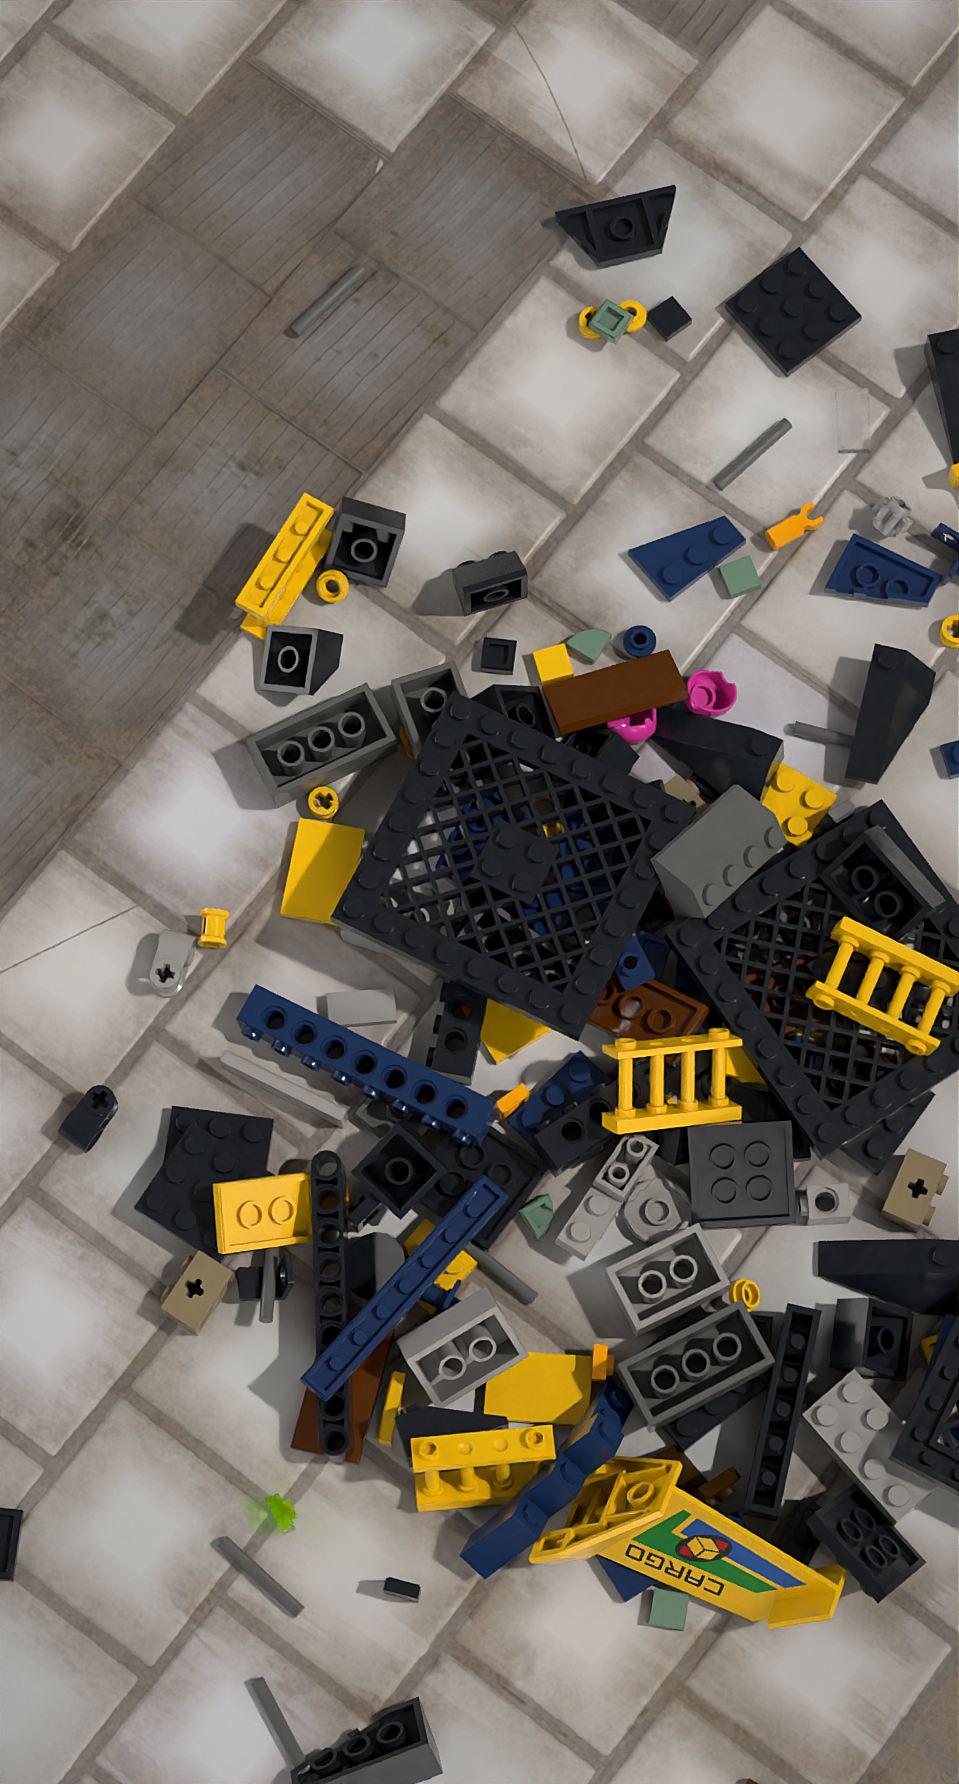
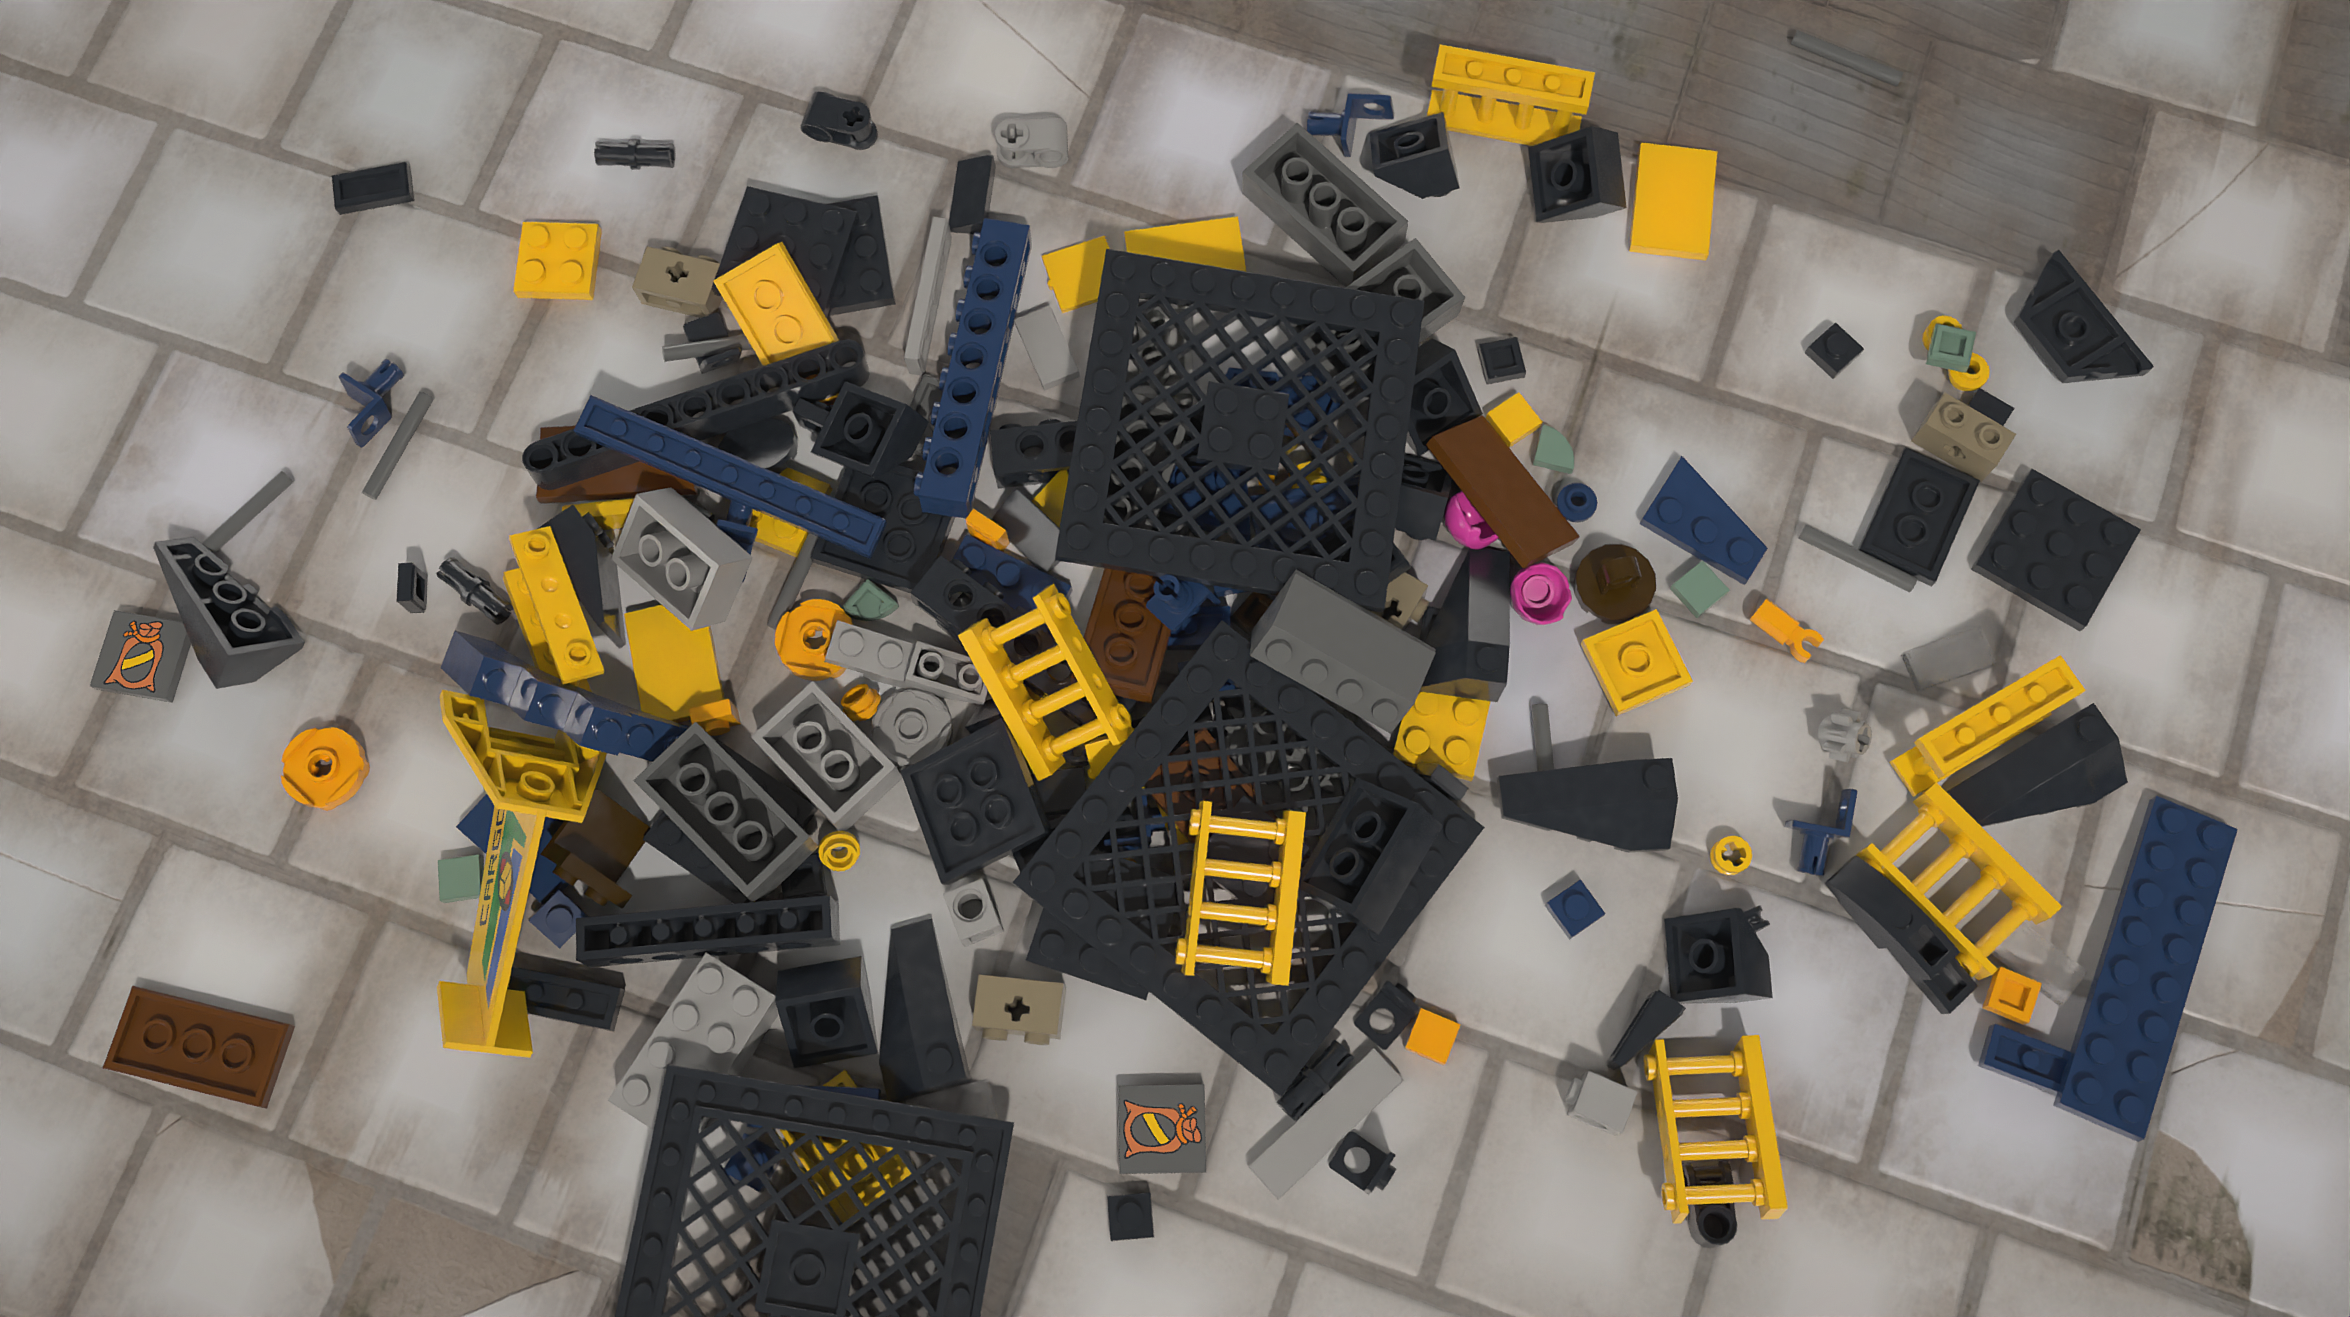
camera: 75 degrees right, 0 degrees up
(54, 1302) = (634, 154): none -> black pin
(132, 1396) = (557, 260): none -> yellow plate
(199, 1027) = (972, 194): none -> black slope
(206, 1585) = (370, 395): none -> dark blue bracket
(213, 928) = (1084, 171): yellow bush -> none
(246, 706) = (1344, 123): none -> dark blue bracket
(282, 1512) = (464, 440): clear neon green plate -> none
(303, 959) = (1076, 273): none -> yellow piece
(326, 793) = (1264, 224): yellow bush -> none
(332, 595) = (1508, 158): yellow plate -> none
(406, 477) = (1673, 201): none -> yellow tile
(420, 1539) = (474, 590): none -> black pin
(490, 582) = (1580, 318): black slope -> none
(517, 1697) = (340, 784): none -> light orange plate
(524, 1065) = (1029, 530): none -> slope
(549, 1285) = (803, 623): none -> light orange plate
(577, 406) = (1834, 350): none -> black plate
(625, 1243) = (860, 702): none -> light orange plate
(685, 341) = (1963, 437): none -> dark tan brick
(714, 637) = (1614, 583): none -> dark brown tile
(733, 398) = (1919, 515): none -> black tile
(785, 644) = (1636, 662): none -> yellow plate
(865, 1543) = (567, 1071): black plate -> none
(881, 575) = (1766, 747): dark blue wing -> none
(923, 415) = (1987, 725): none -> yellow fence

